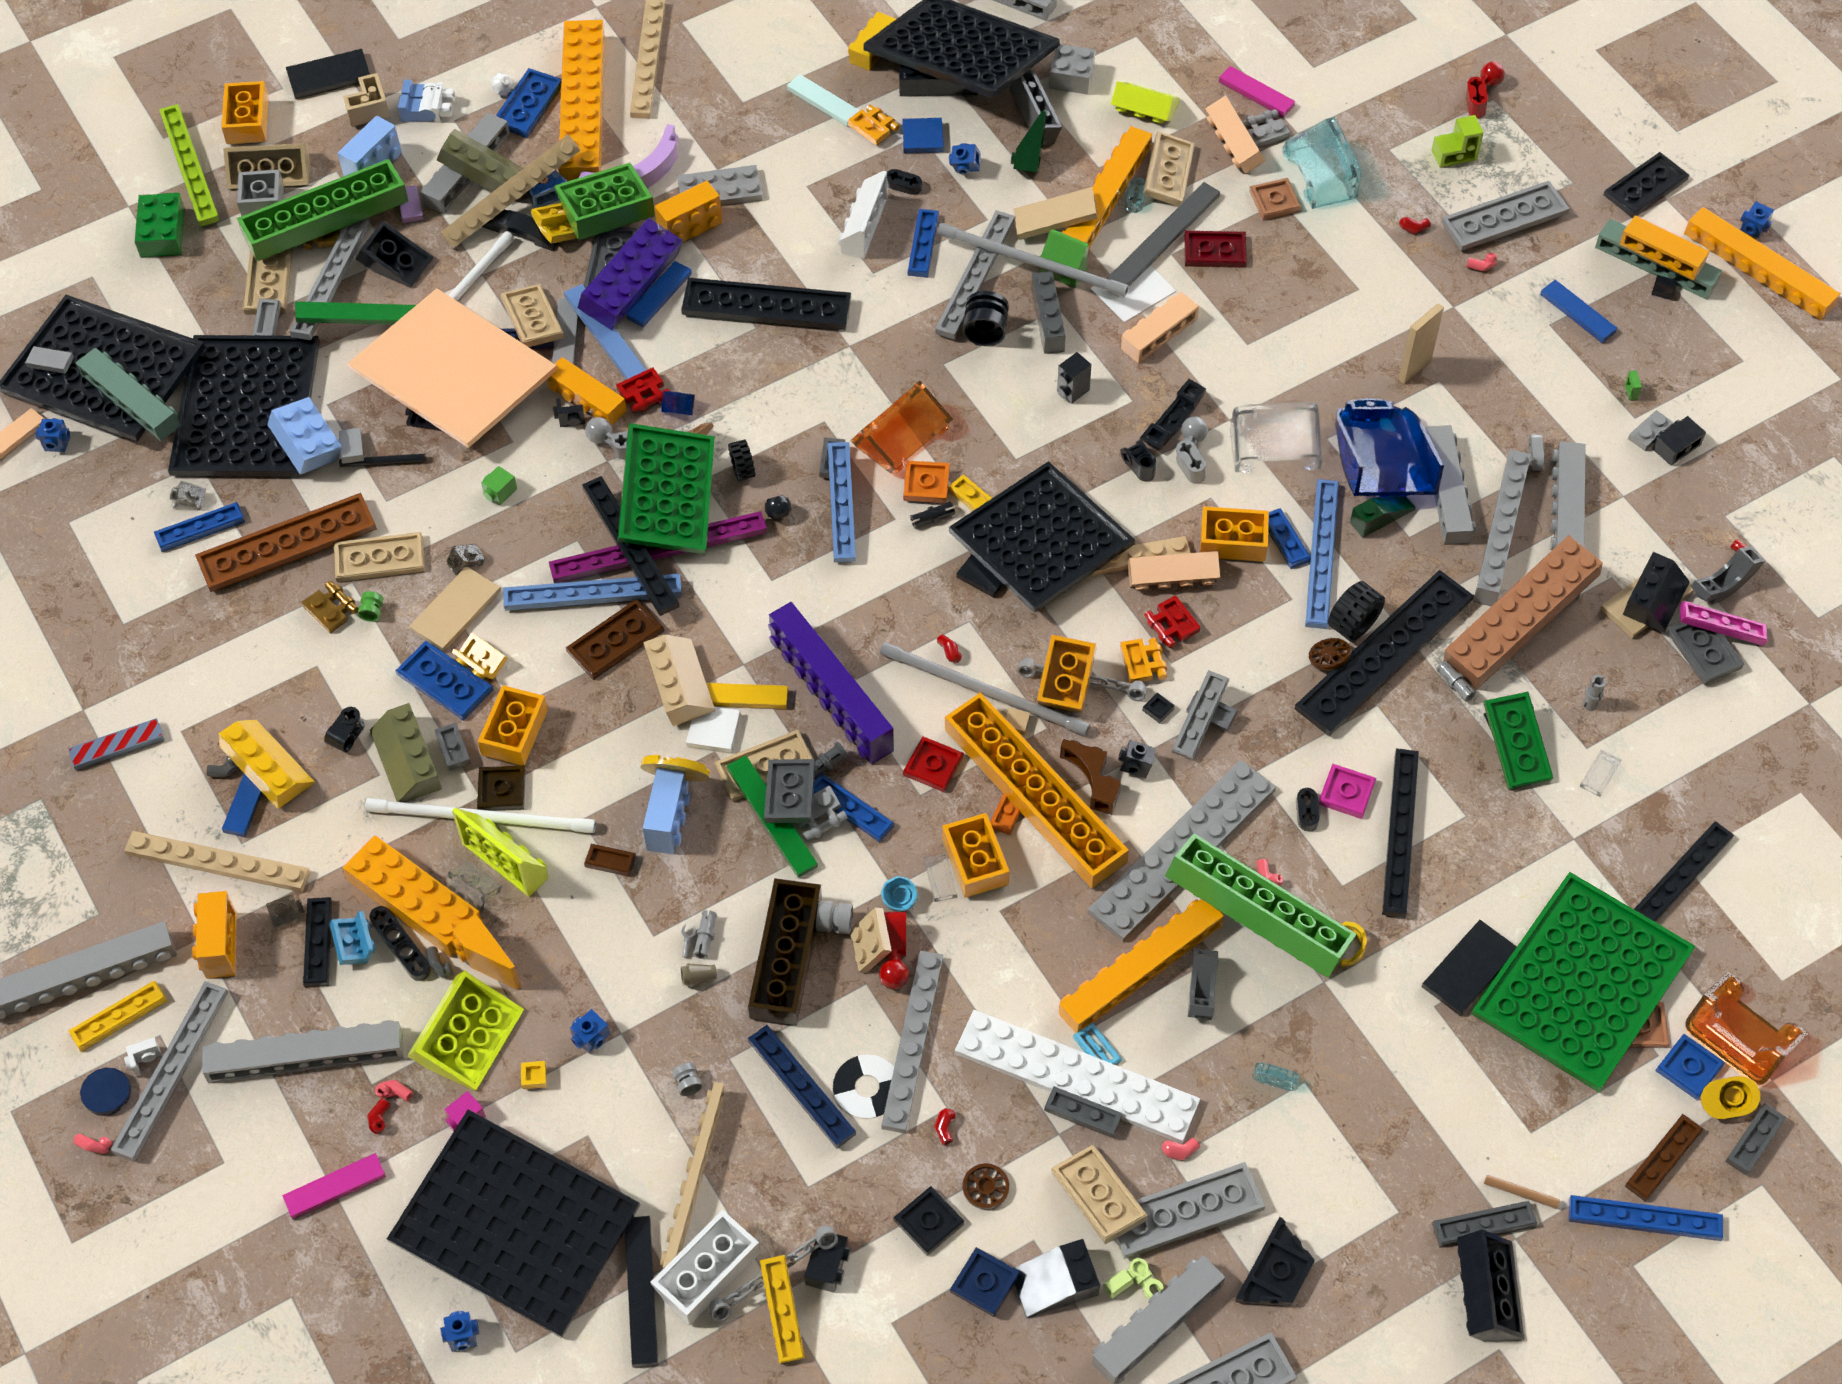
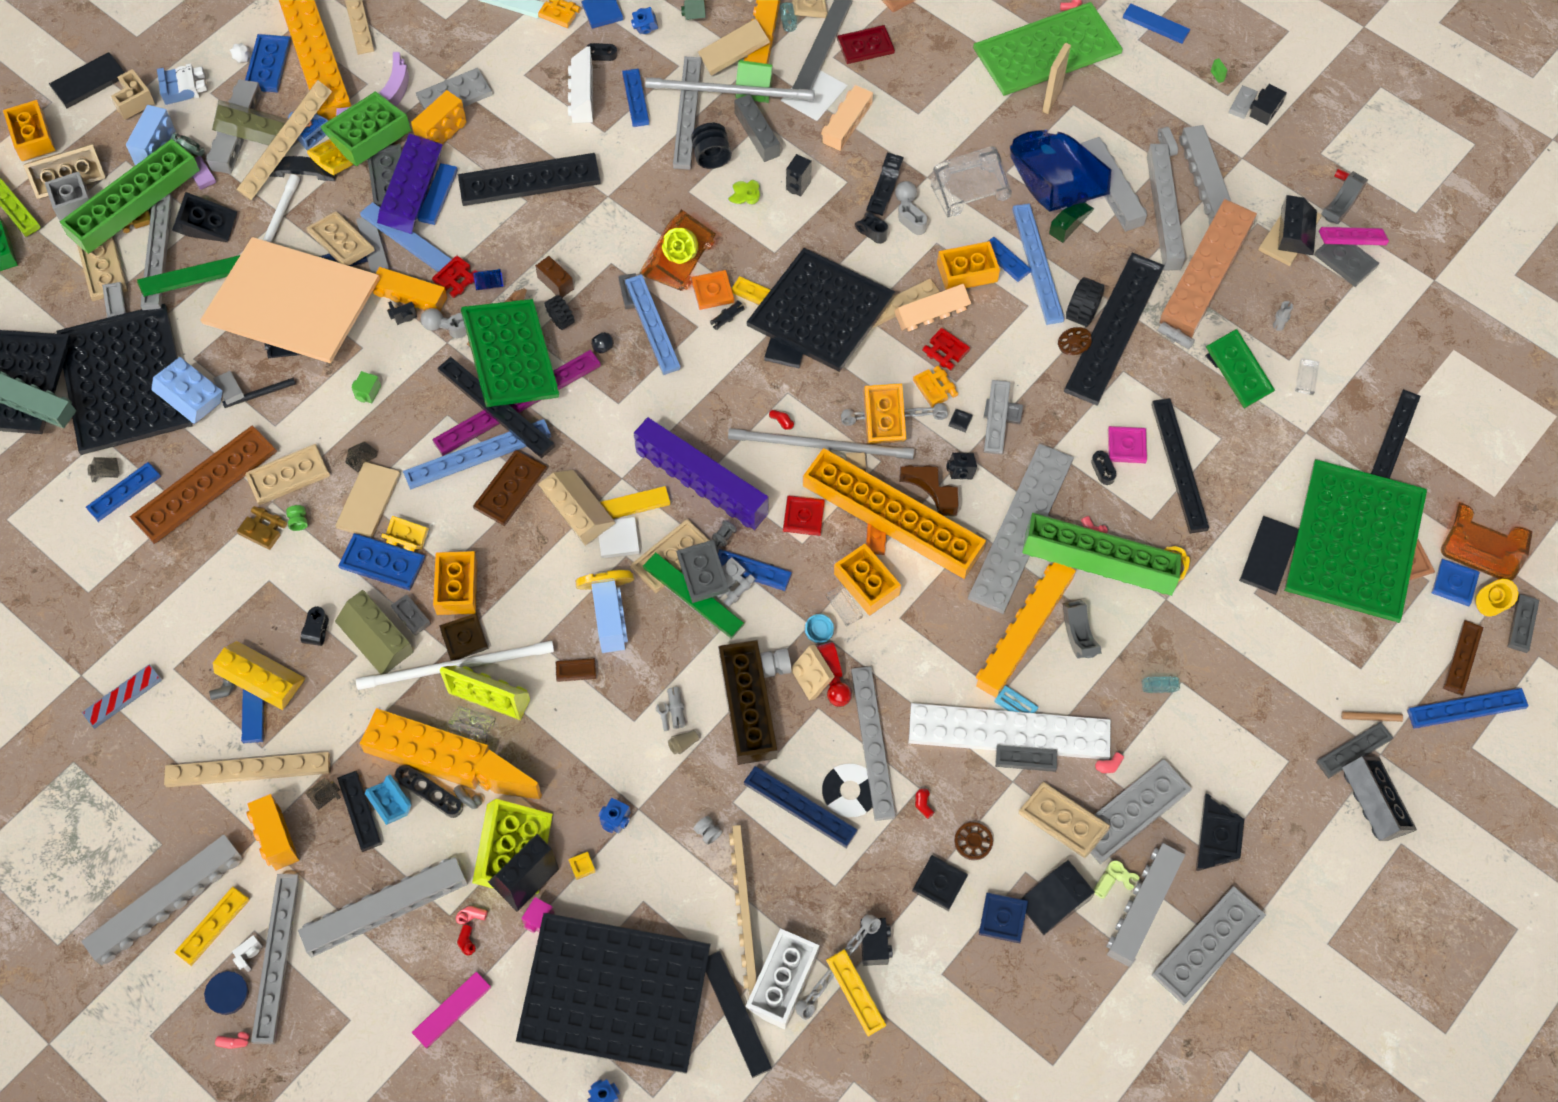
camera: 20 degrees left, 5 degrees up
(406, 170) = (188, 144): none -> sand green tile
(466, 1061) = (525, 873): none -> black slope
(752, 420) = (554, 277): none -> reddish brown brick
(906, 421) = (680, 245): none -> neon yellow cylinder
(1008, 382) = (745, 192): none -> lime plate
(1474, 300) = (1027, 53): none -> bright green plate

